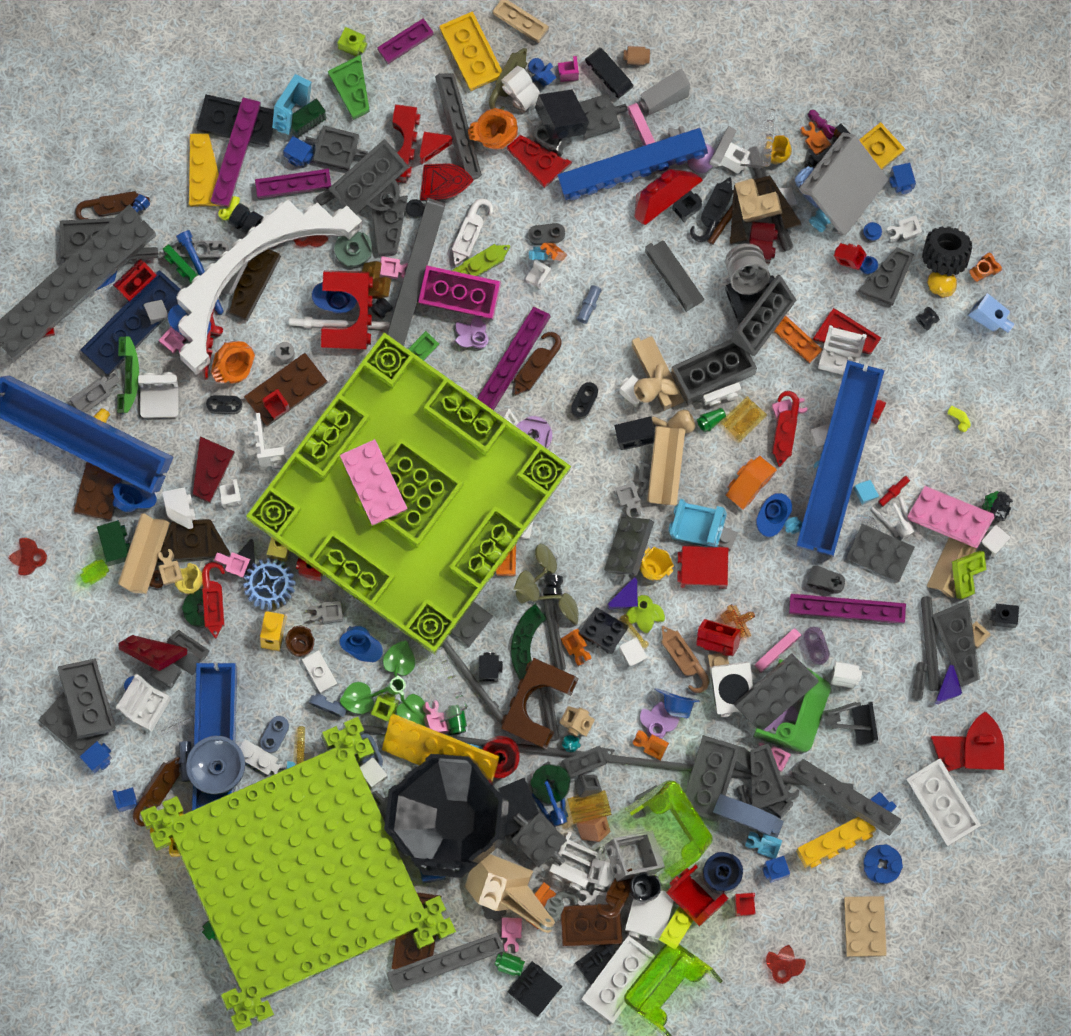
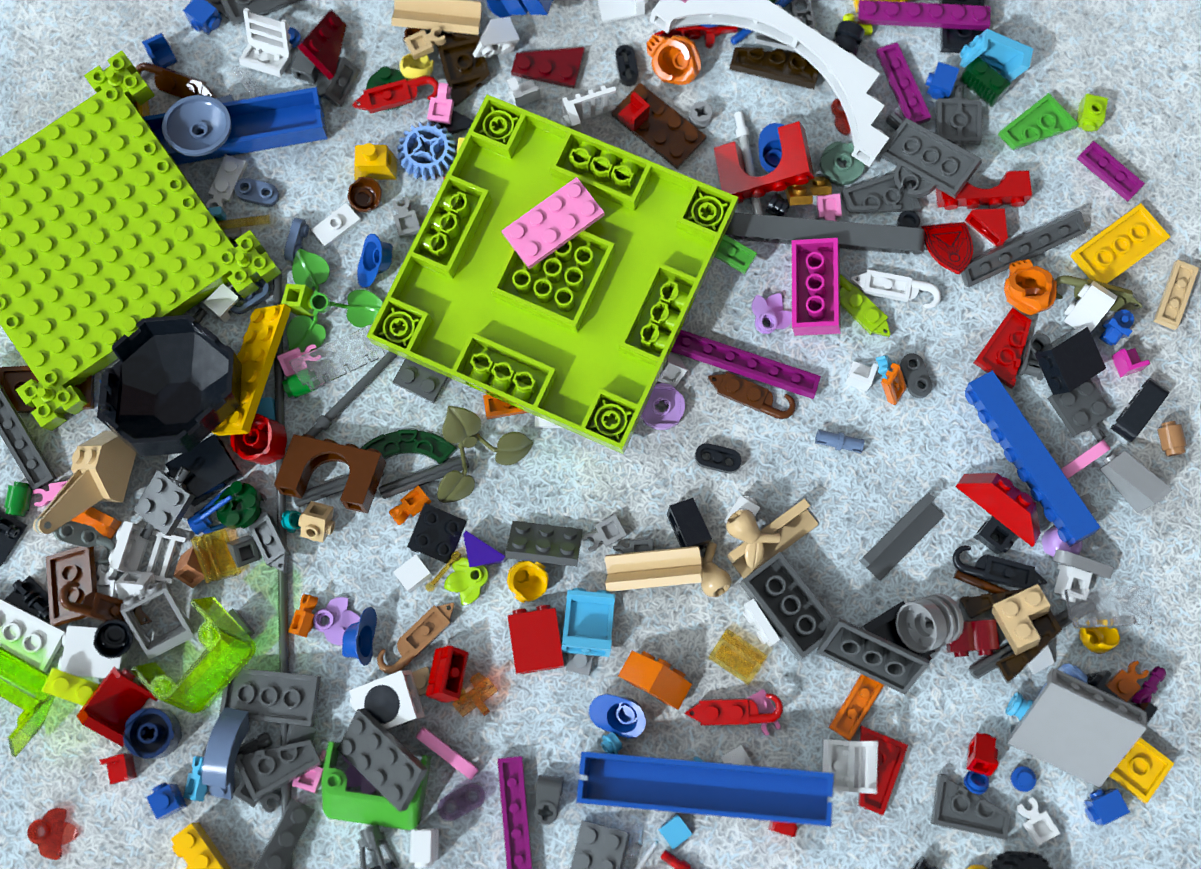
camera: 80 degrees right, 0 degrees up
(489, 667) = (368, 409): black brick -> none
(553, 585) = (486, 463): black wheel -> none
(709, 420) = (726, 615): green cone -> none

